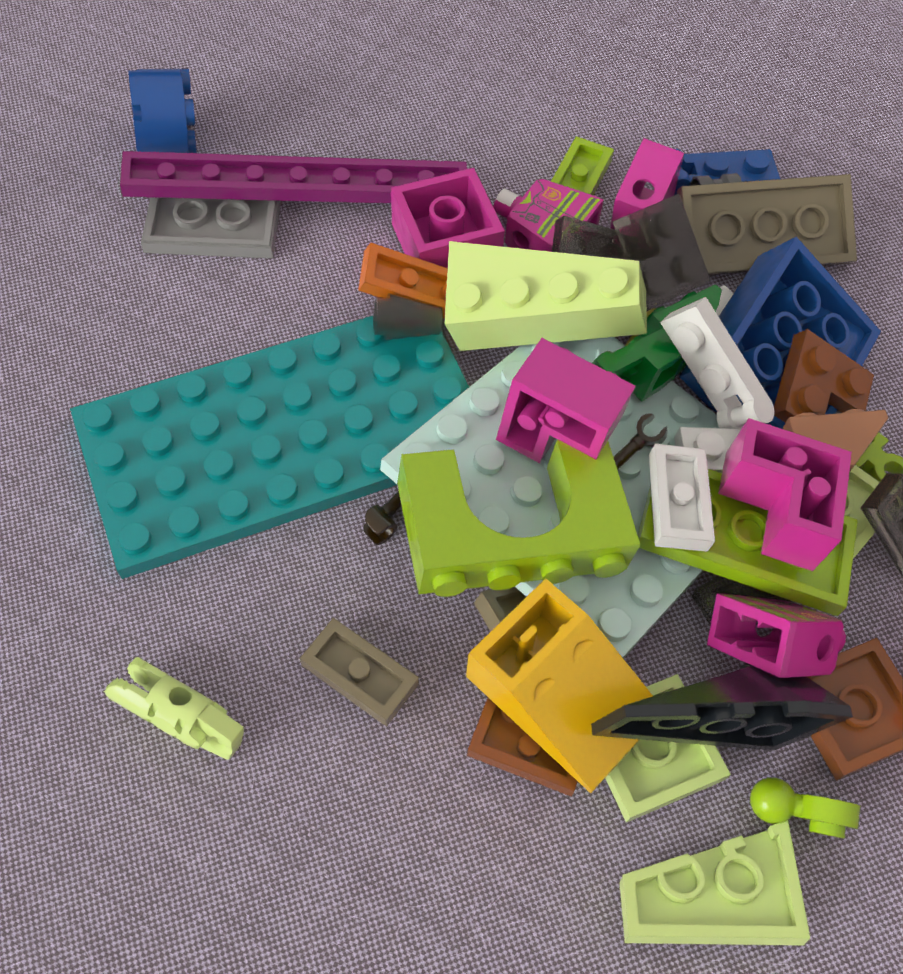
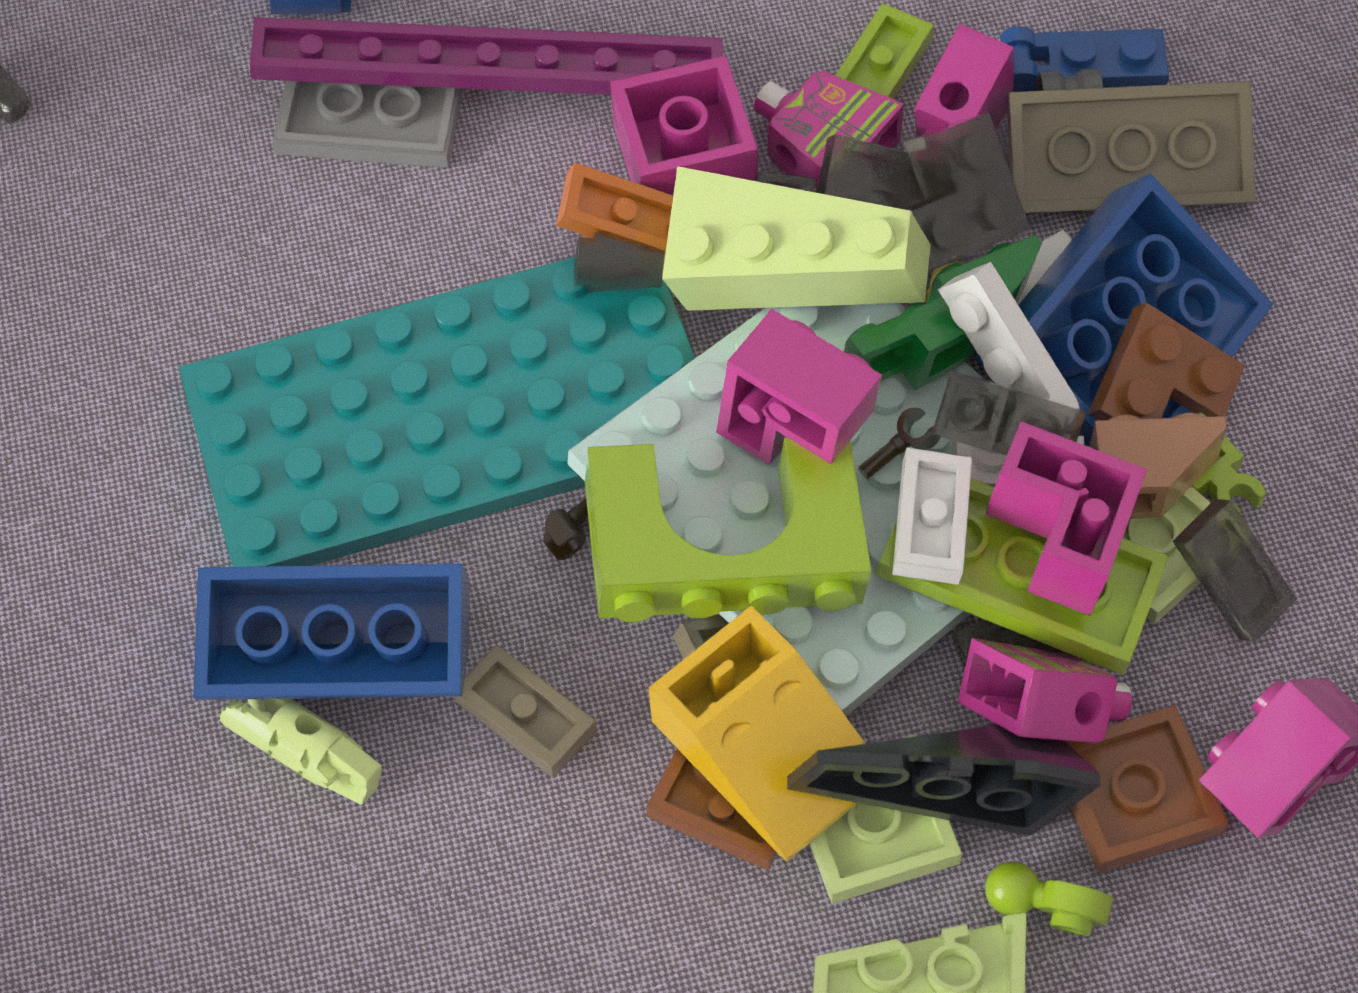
camera: 10 degrees right, 0 degrees up
(194, 617) = (331, 631): none -> blue slope
(717, 415) = (990, 414): none -> clear smoke slope

